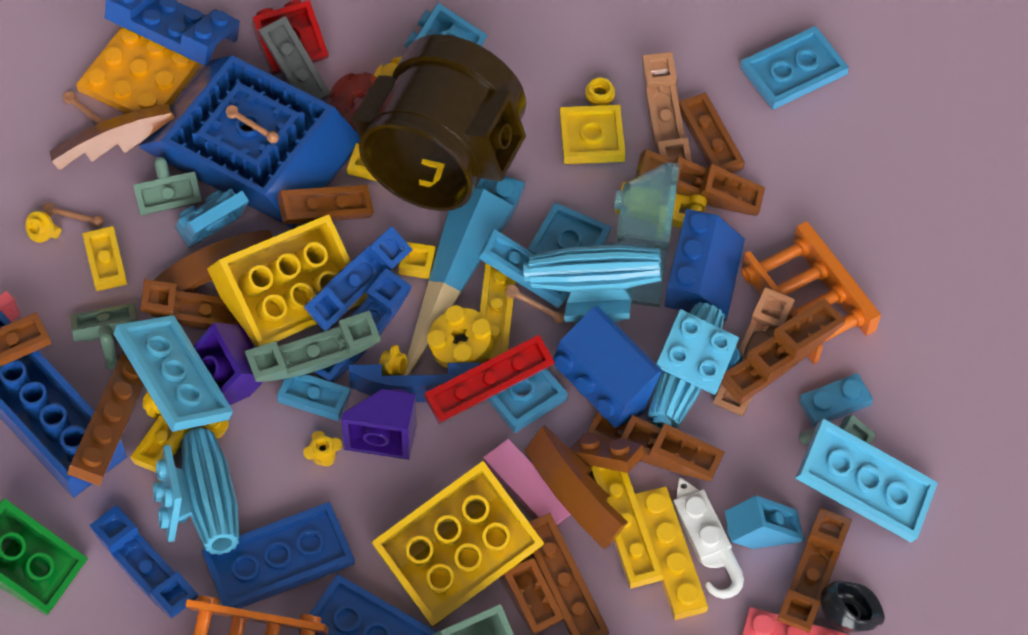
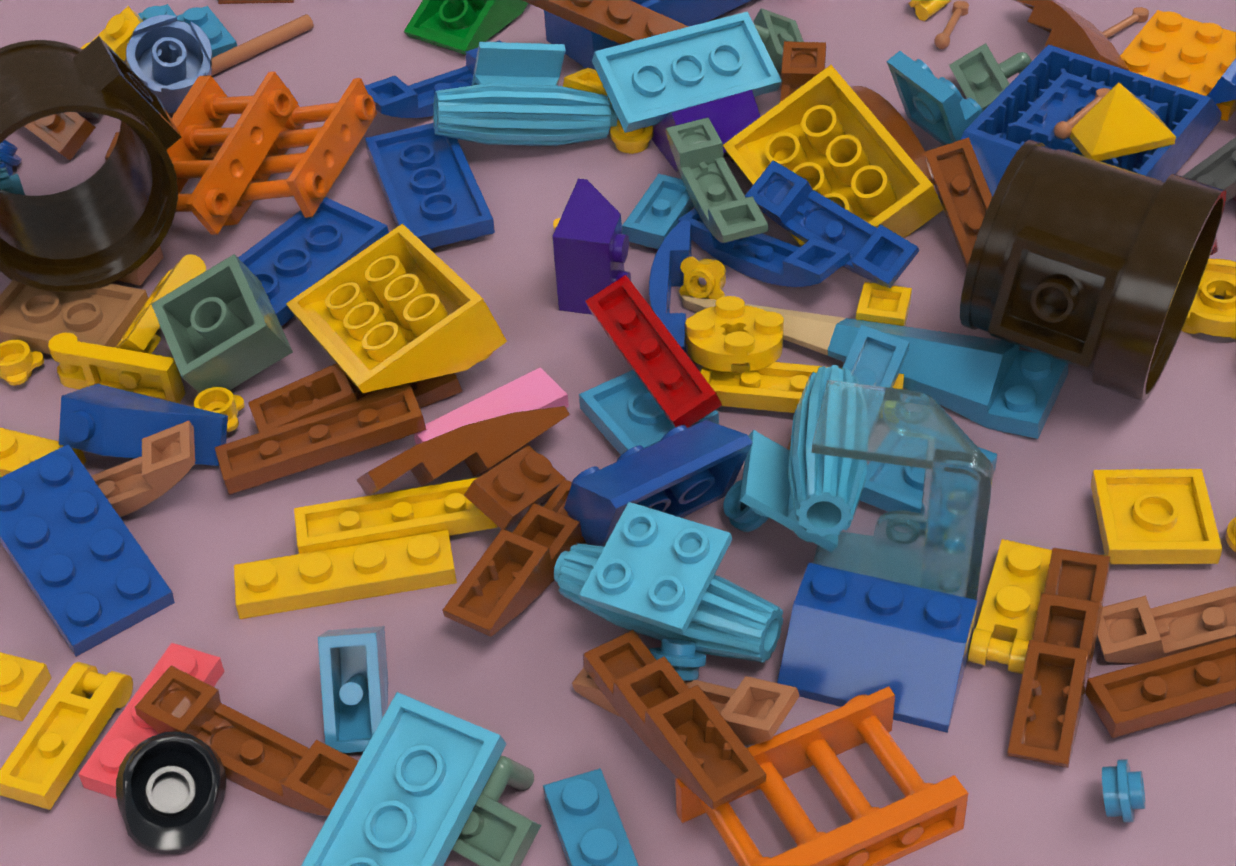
camera: 100 degrees right, 15 degrees down
(104, 258) = (879, 42): yellow plate -> none
(279, 106) = (1120, 127): none -> yellow slope
(707, 536) = (403, 608): white plate -> none
(781, 164) = (1122, 790): none -> dark azure plate

